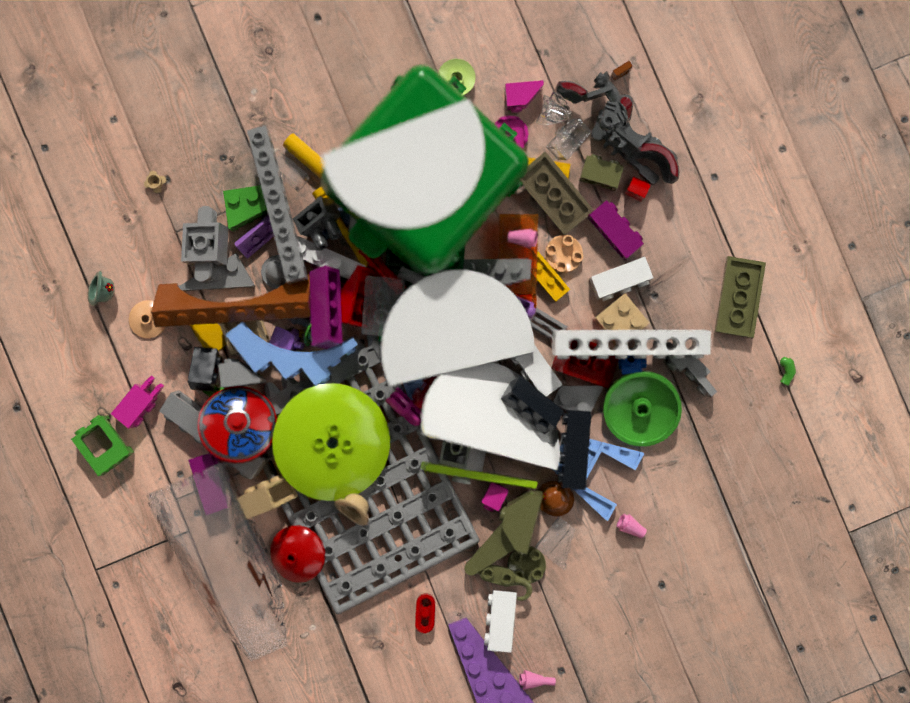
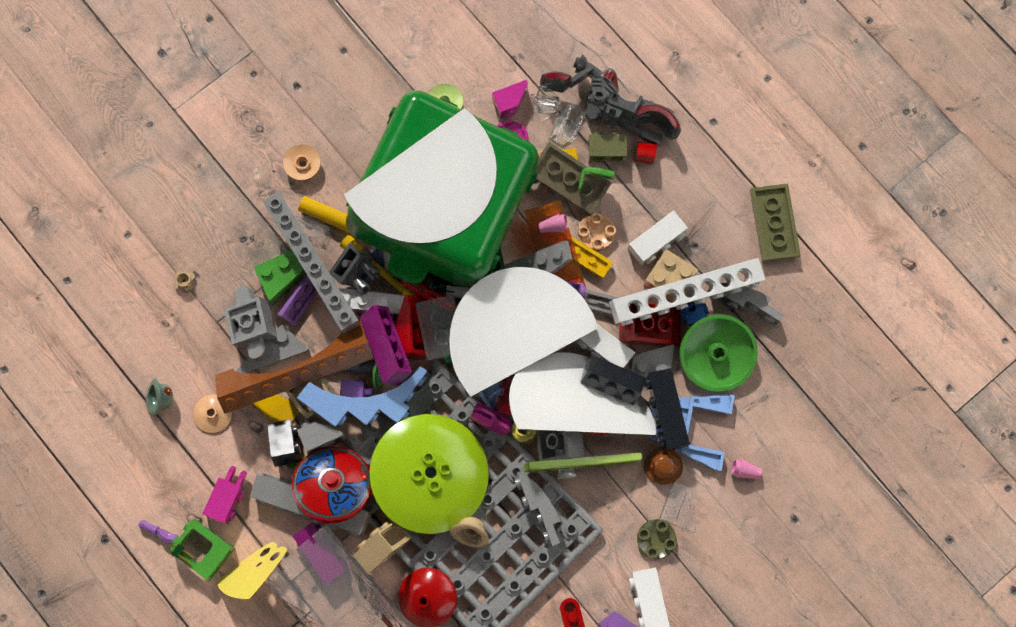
camera: 20 degrees left, 10 degrees down
(71, 420) = (155, 530): none -> medium lavender piece
(76, 443) = (178, 550): none -> dark green piece
(132, 489) = (245, 577): none -> light yellow piece
(273, 272) = (325, 330): light grey hat -> none
(295, 90) = (297, 155): none -> light nougat dish
(424, 496) = (537, 500): none -> light grey slope
(494, 496) = (604, 481): dark pink brick -> none
(511, 535) = (634, 508): olive slope -> none
(588, 200) = (599, 172): none -> bright green piece
(615, 229) = (638, 195): magenta brick -> none
(621, 70) = (596, 51): dark orange tile -> none
(790, 370) = (845, 276): bright green arm -> none

